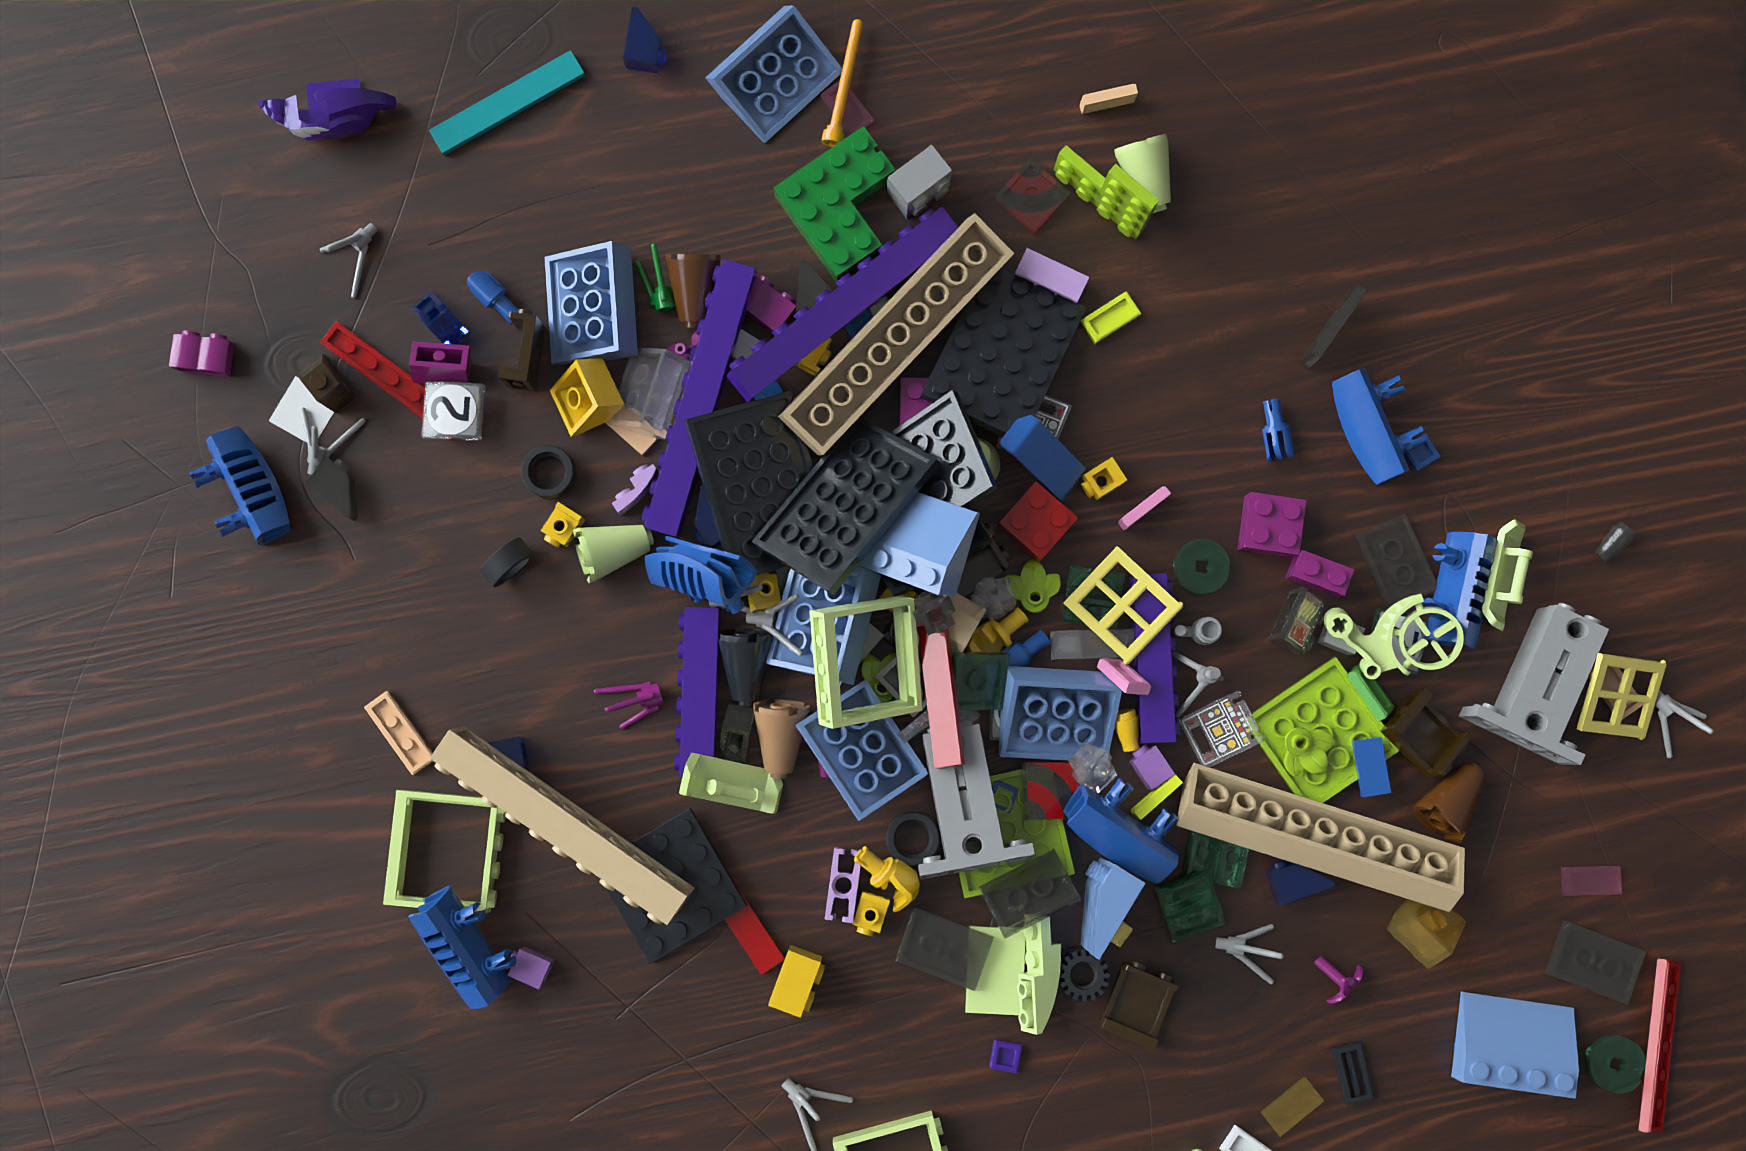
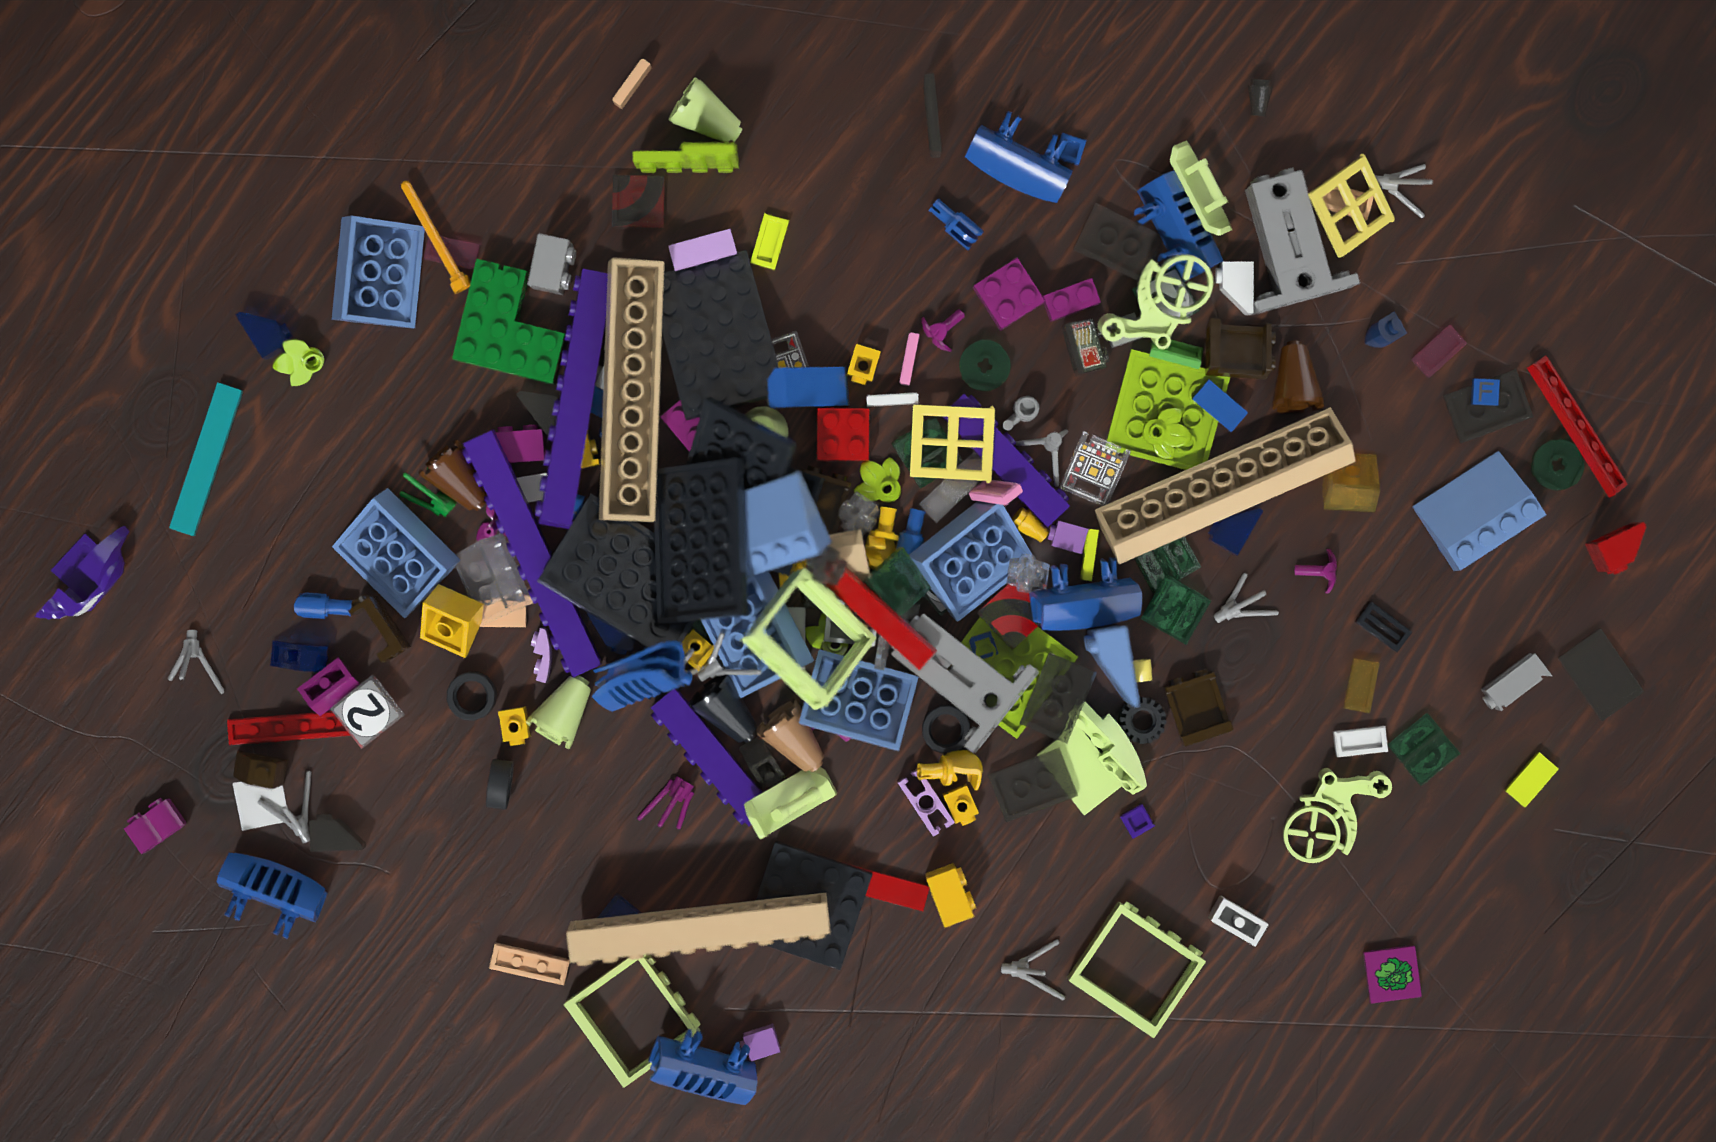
camera: 35 degrees left, 5 degrees up
(646, 85) = (294, 361): none -> lime plate
(1102, 528) = (892, 399): none -> white tile
(1189, 504) = (939, 330): none -> magenta plant
(1469, 679) = (1237, 284): none -> white slope
(1560, 824) = (1385, 331): none -> dark blue plate
(1605, 948) = (1485, 392): none -> blue tile

